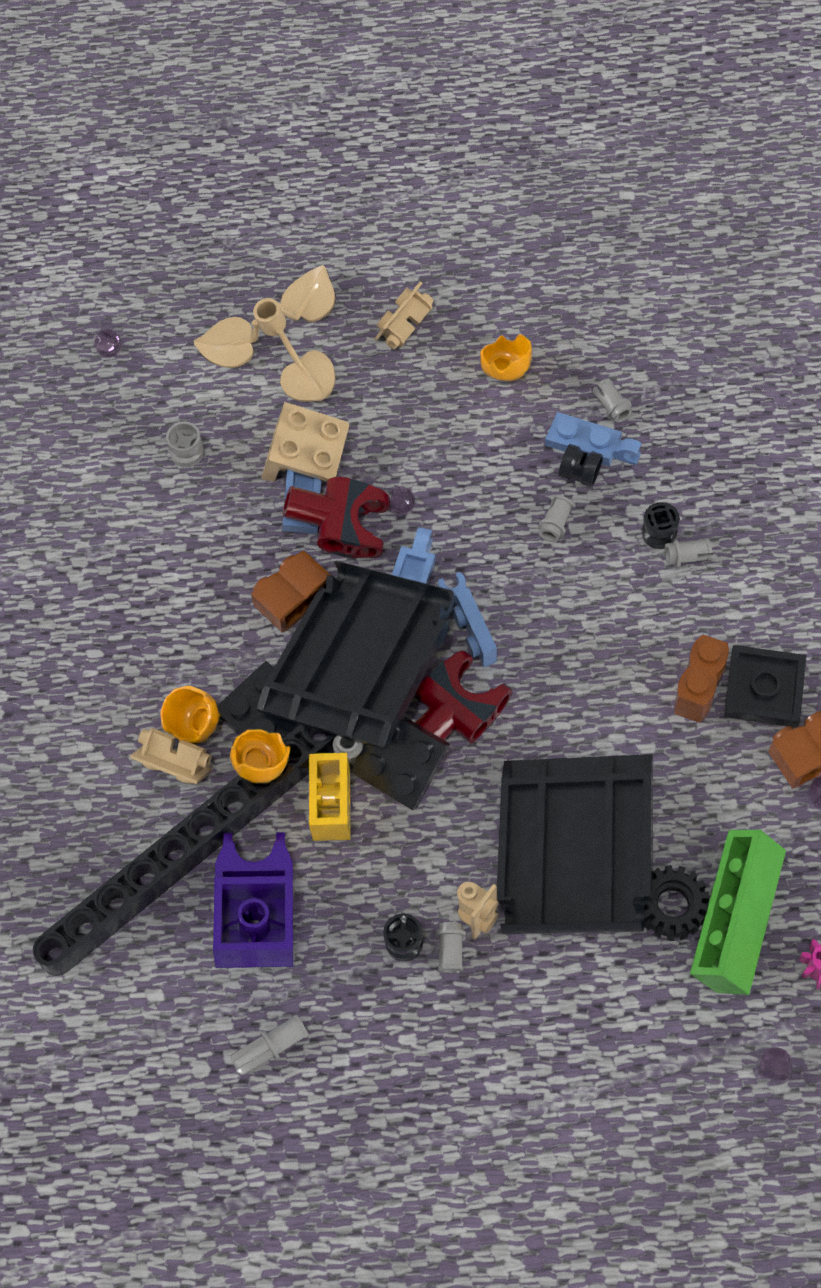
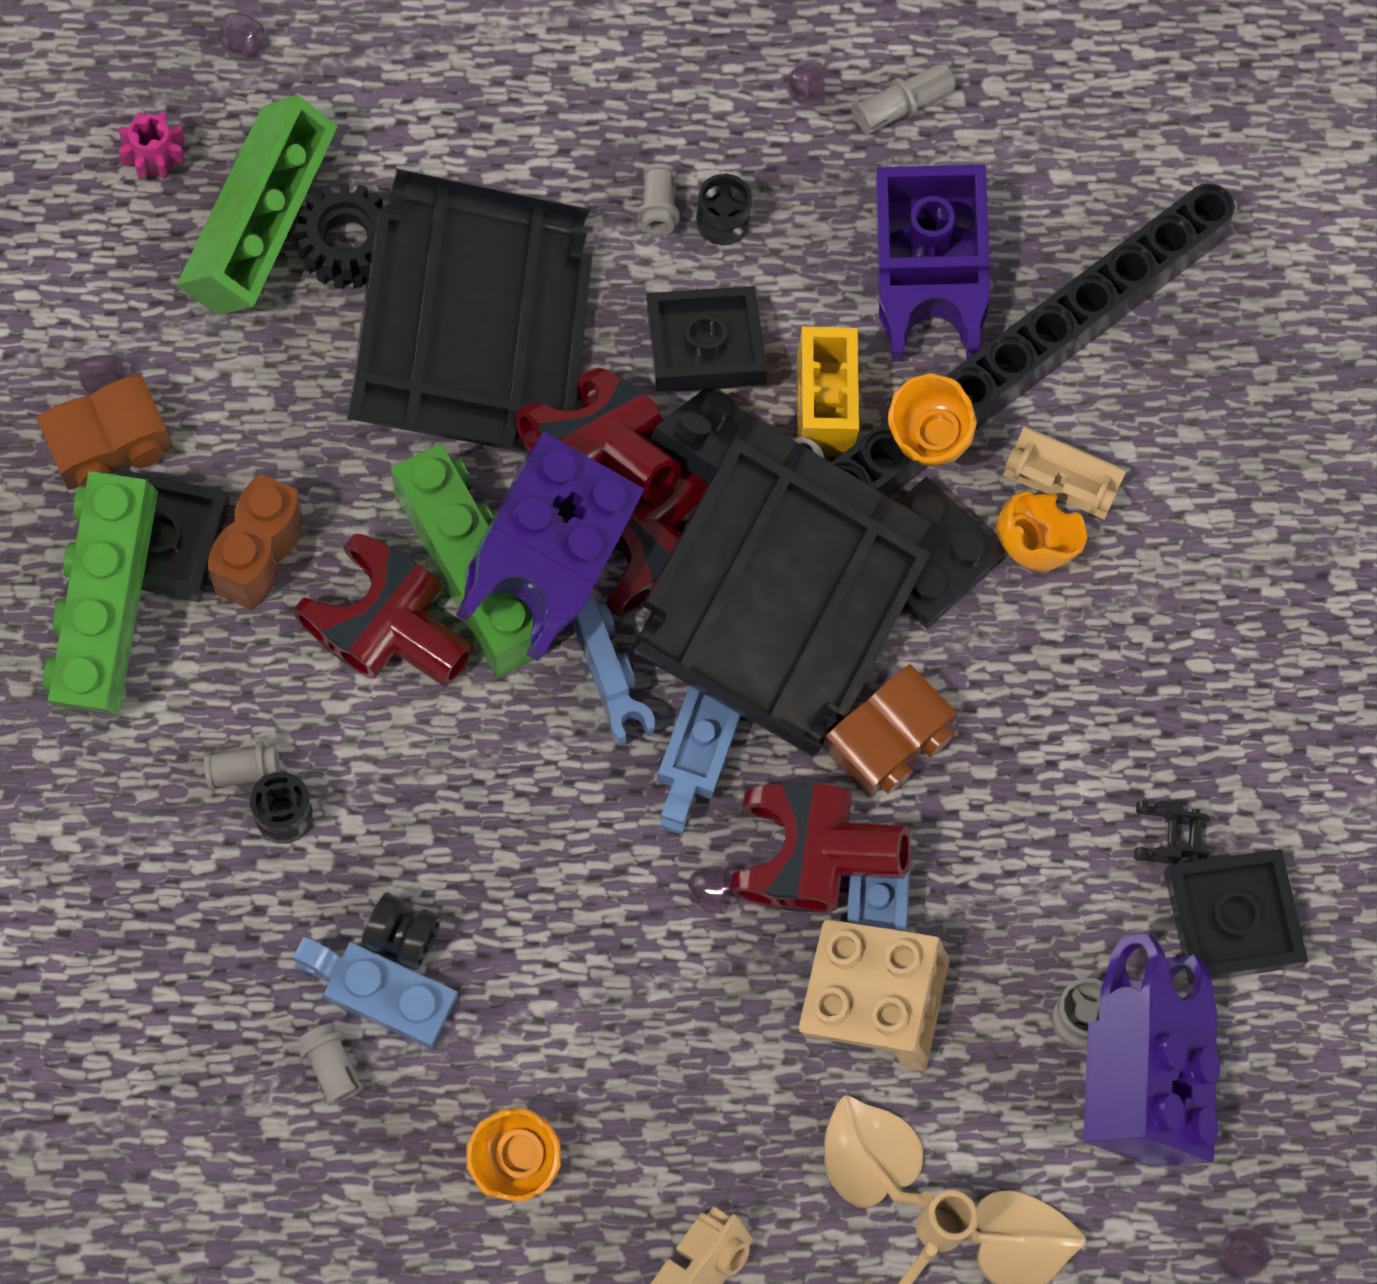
camera: 170 degrees right, 5 degrees up
(91, 503) = (1236, 914): none -> black plate
(124, 539) = (1174, 815): none -> black piece
(148, 405) = (1153, 1061): none -> dark purple brick
(343, 1050) = (807, 84): none -> clear purple hinge
(413, 837) = (706, 339): none -> black plate
(477, 907) = (620, 220): tan hinge -> none
(478, 748) = (609, 429): none -> dark red connector
(510, 655) = (537, 554): none -> dark purple brick
(553, 525) = (453, 839): light grey pin -> none
(562, 675) = (450, 529): none -> bright green brick
(609, 640) = (388, 618): none -> dark red connector
(792, 629) = (102, 593): none -> bright green brick

